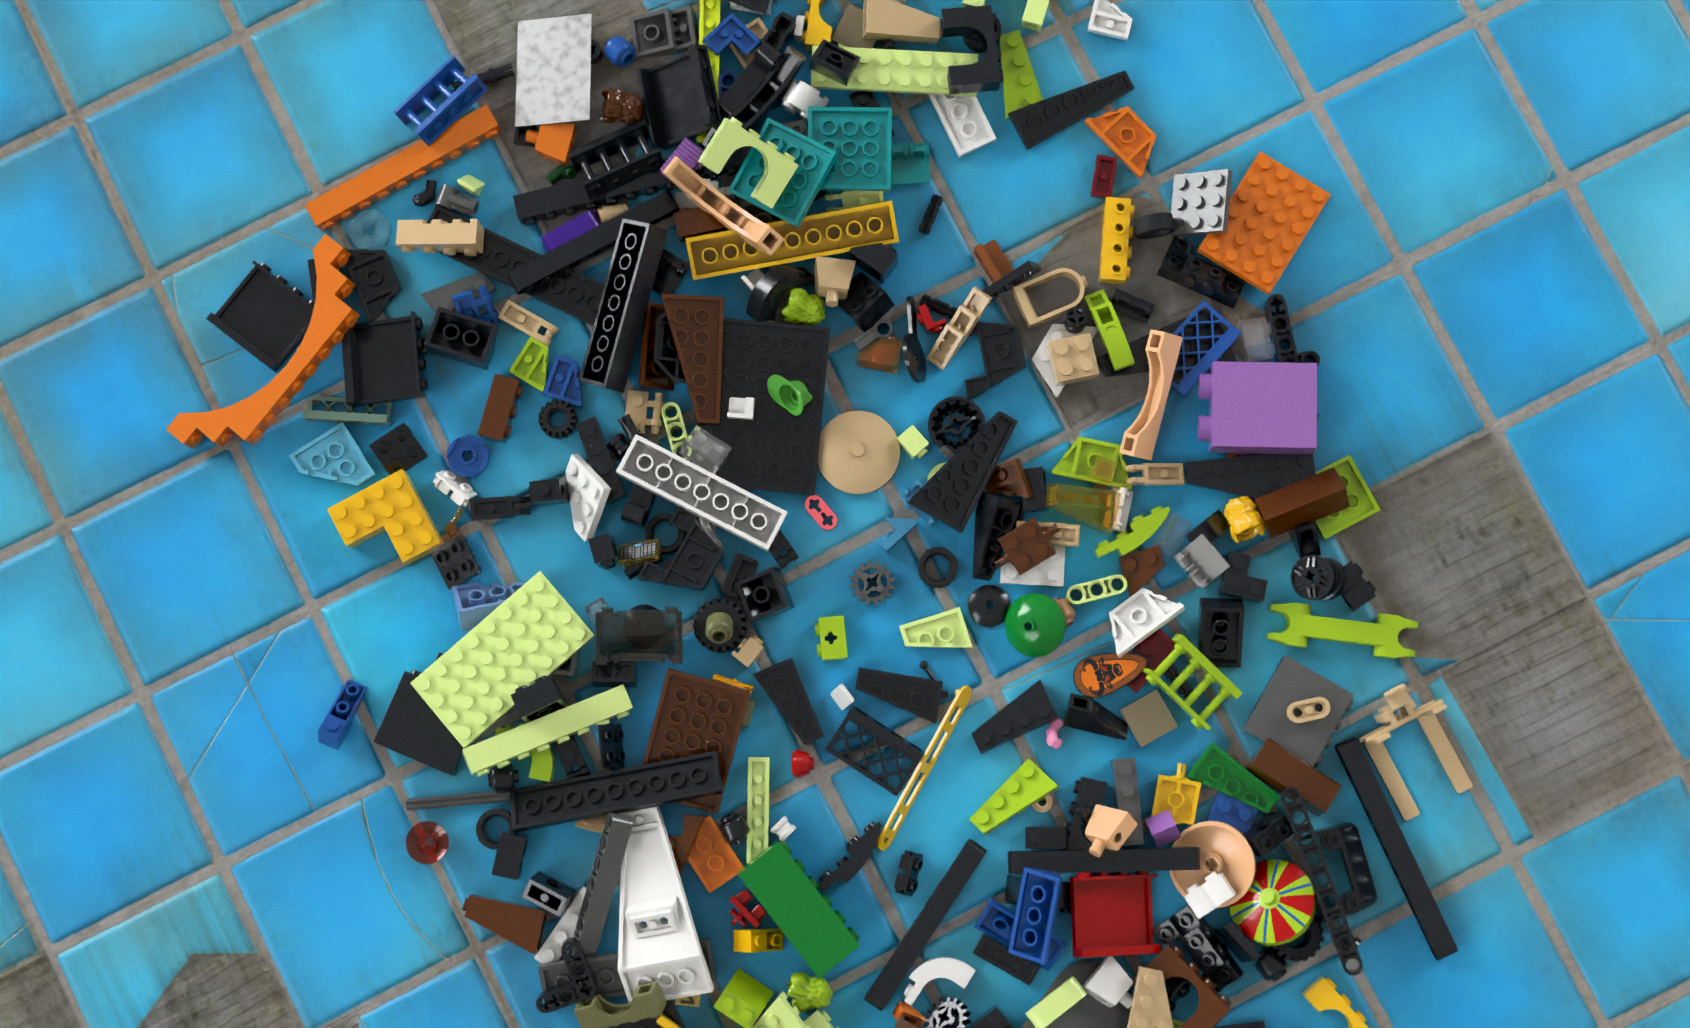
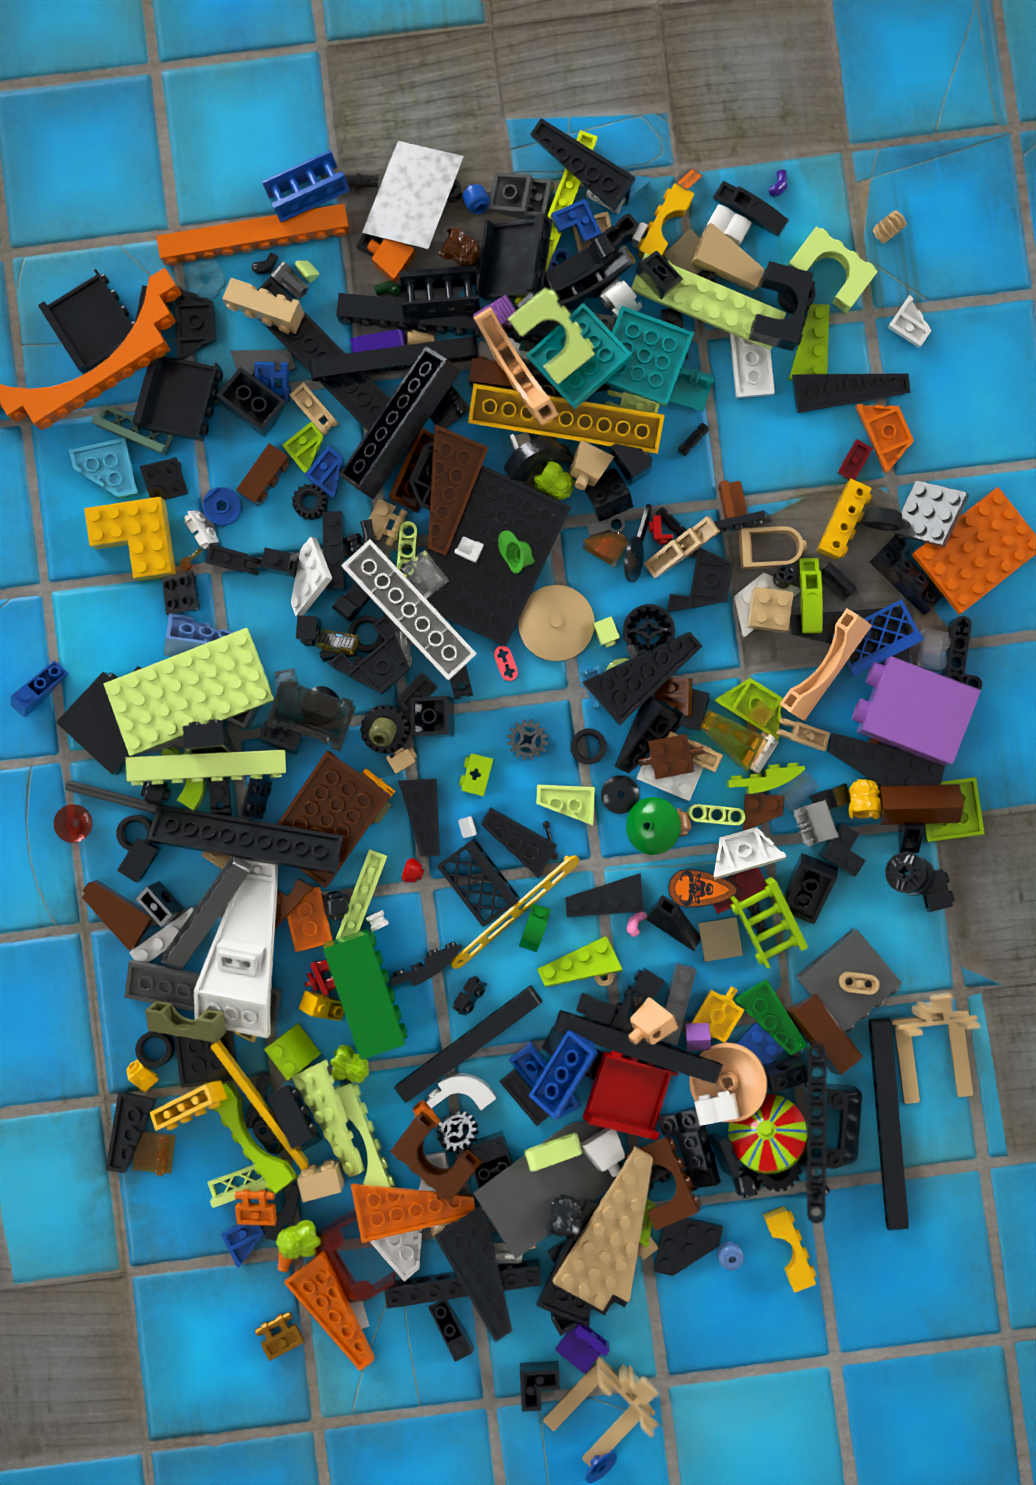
camera: 15 degrees right, 5 degrees up
(575, 985) = (153, 989): black beam -> none
(901, 528) = (570, 701): dark azure slope -> none
(951, 777) = (535, 928): none -> green brick
(1381, 635) = (943, 940): lime piece -> none

